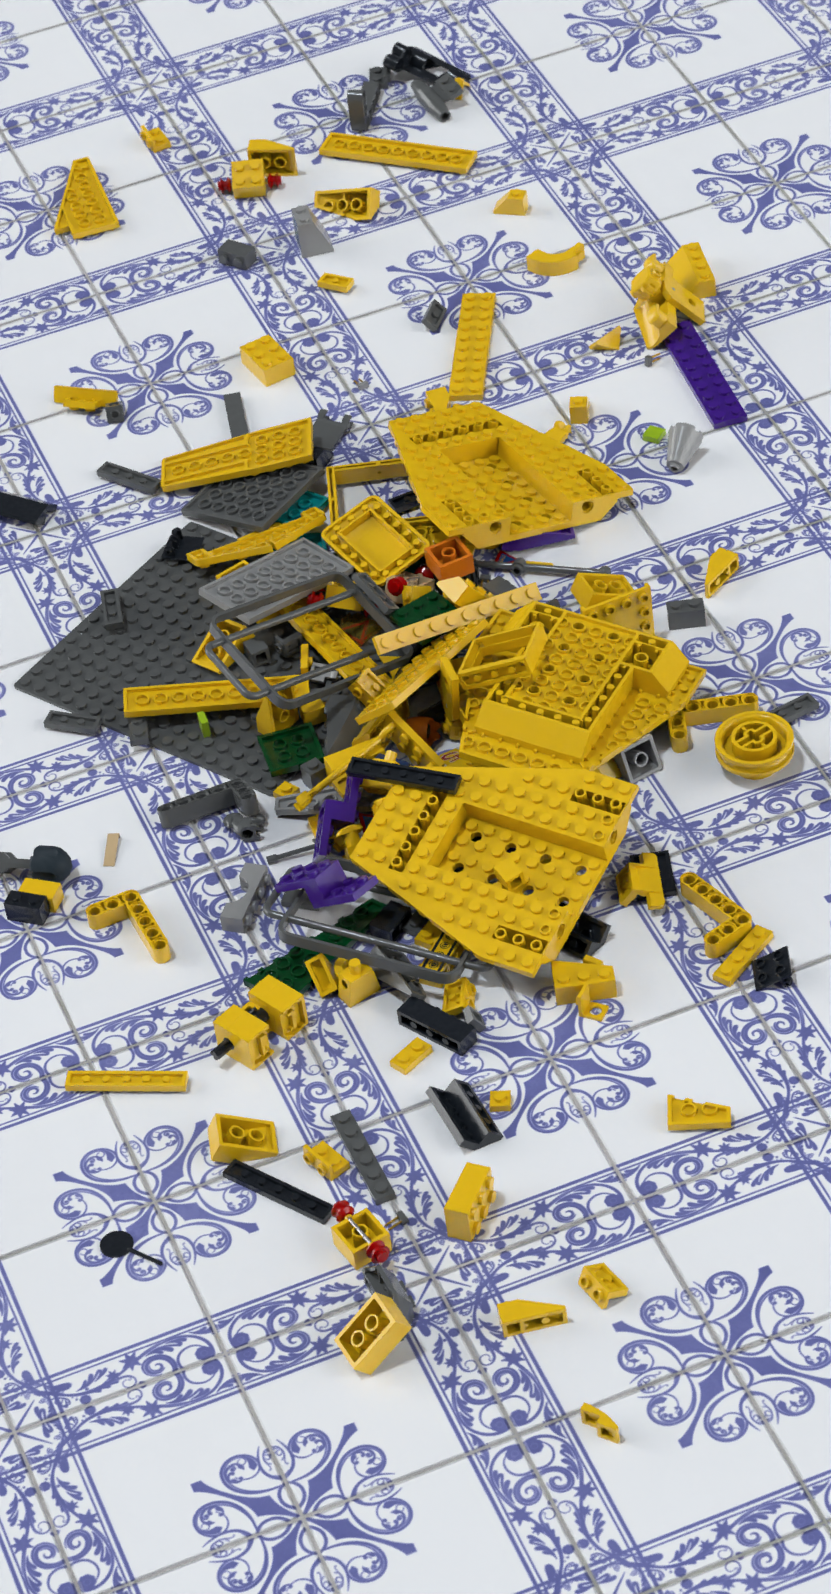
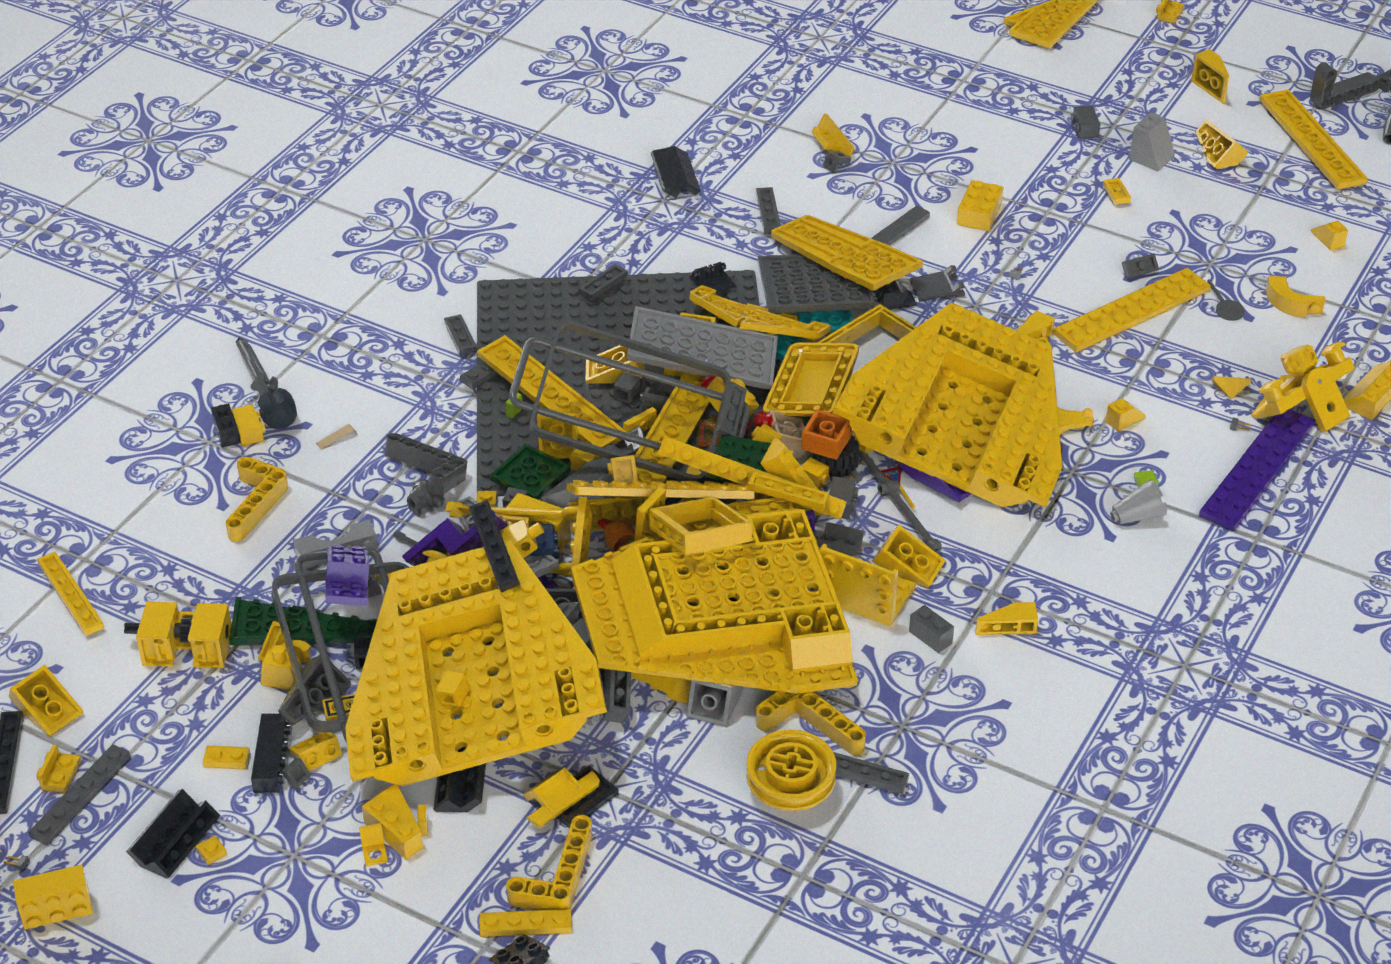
camera: 45 degrees right, 0 degrees up
(248, 179) = (1177, 78): yellow brick -> none
(499, 603) = (788, 491): none -> yellow plate
(525, 299) = (1227, 309): none -> dark grey piece

